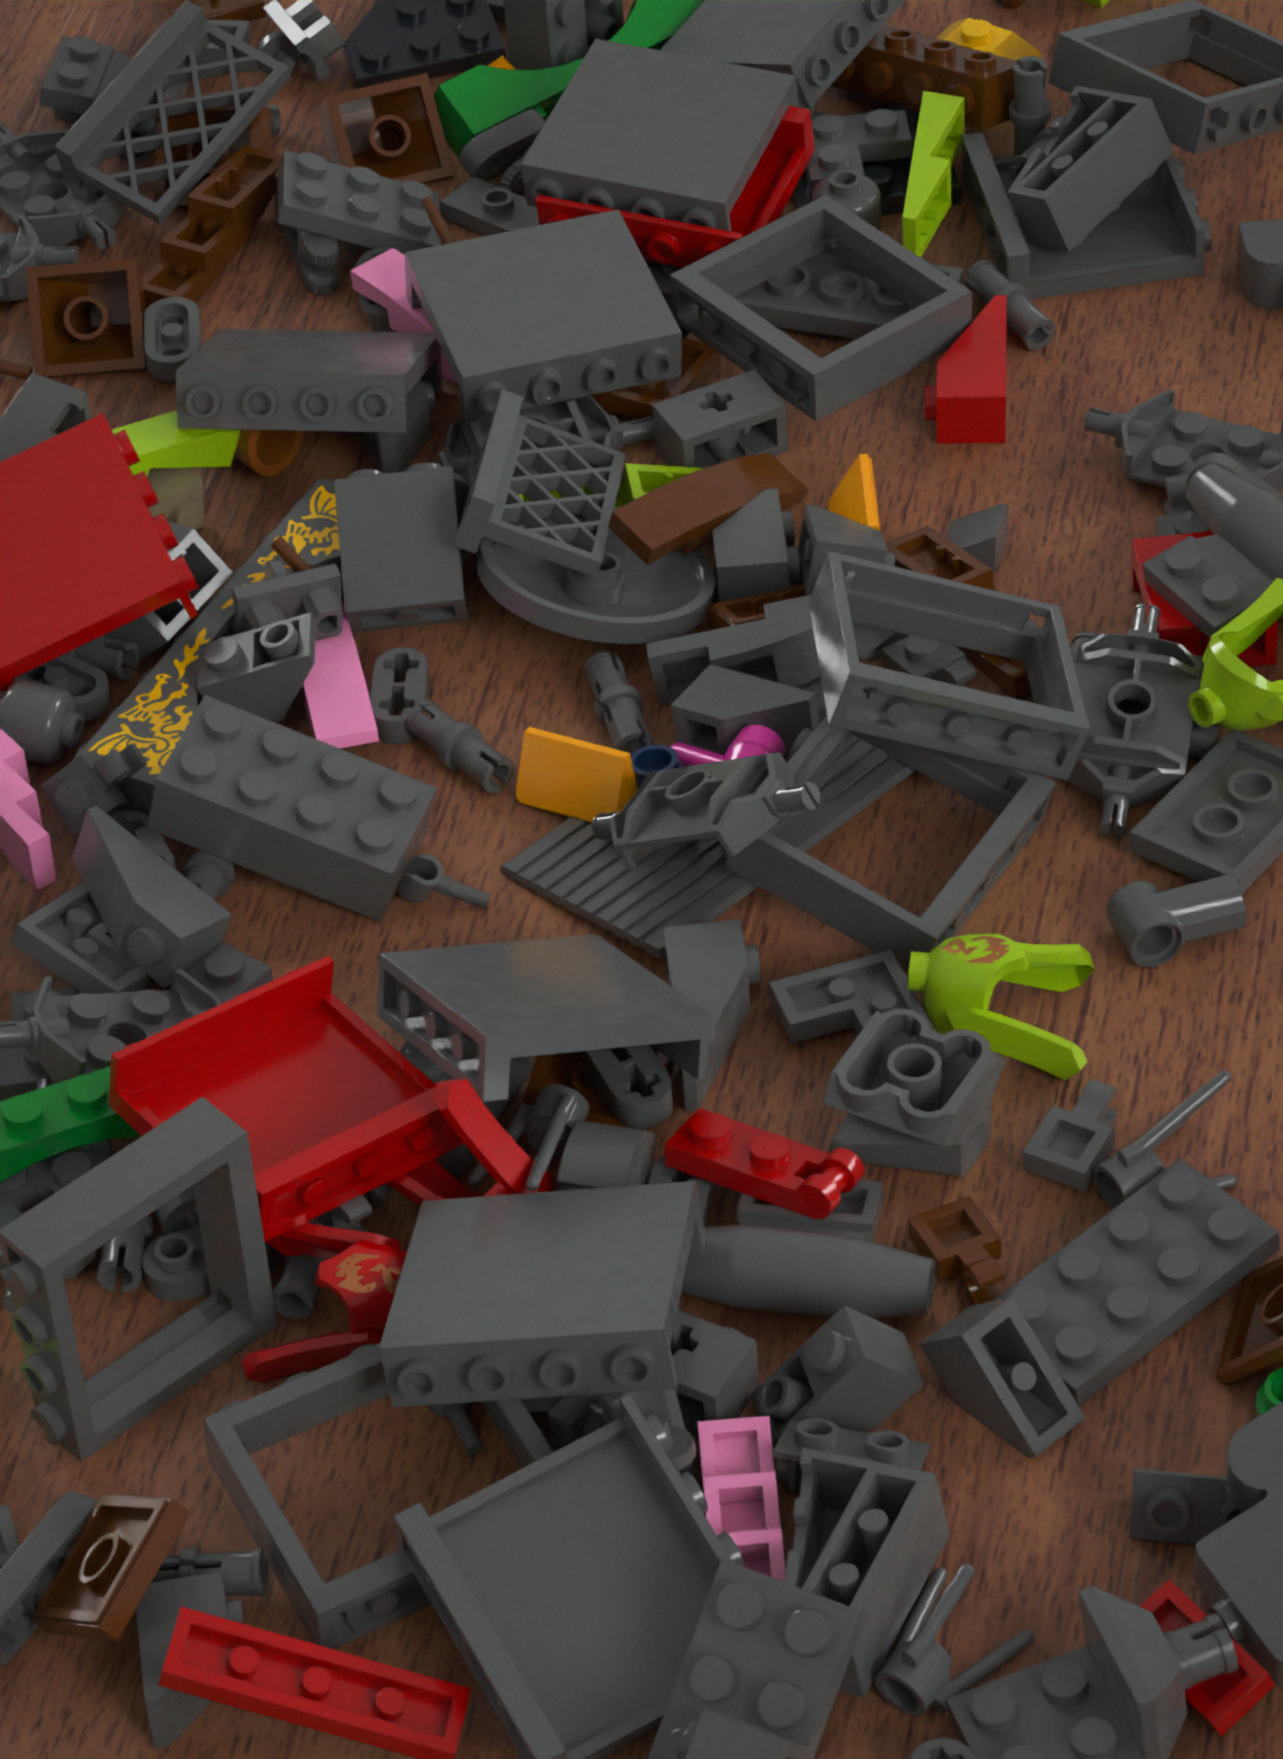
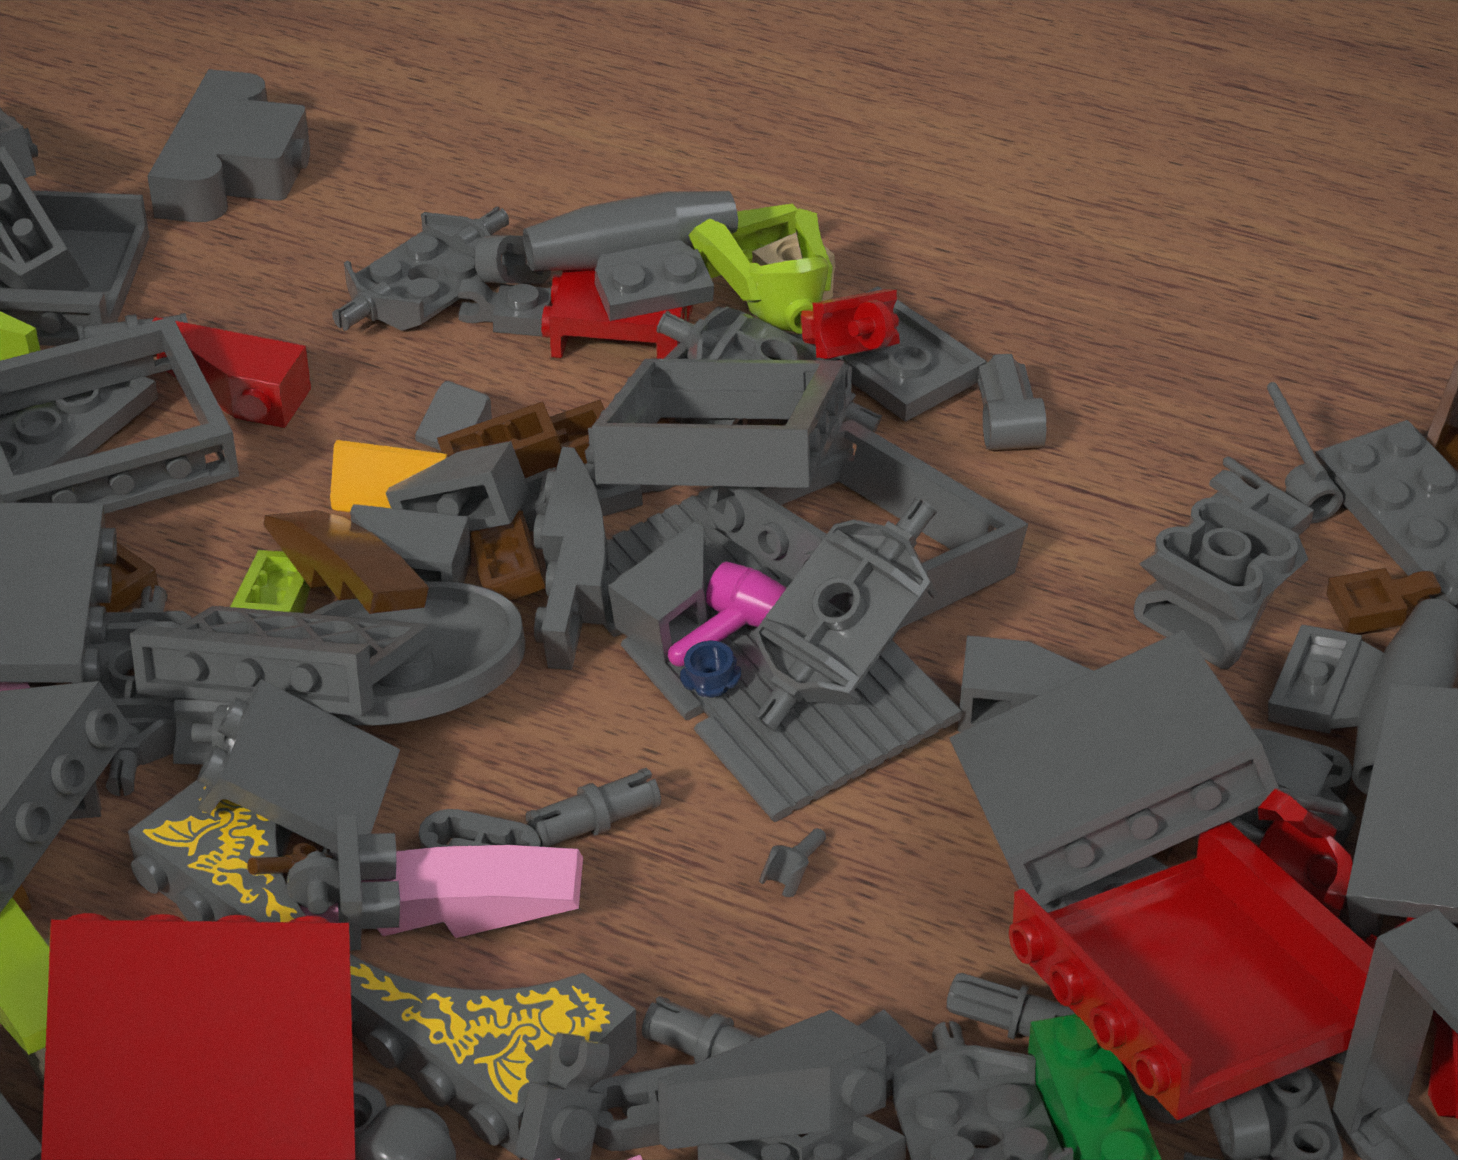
camera: 80 degrees left, 0 degrees up
(259, 667) = (442, 916): dark grey slope -> none
(291, 807) = (690, 929): dark grey brick -> none
(573, 776) = (694, 727): light orange slope -> none
(617, 703) = (585, 686): dark grey pin -> none
(720, 423) = (199, 541): dark grey brick -> none
(763, 1164) = (1288, 679): red plate -> none
(841, 996) = (1059, 595): dark grey plate -> none
(960, 980) = (1084, 518): lime piece -> none
(1201, 744) = (851, 323): none -> red hips

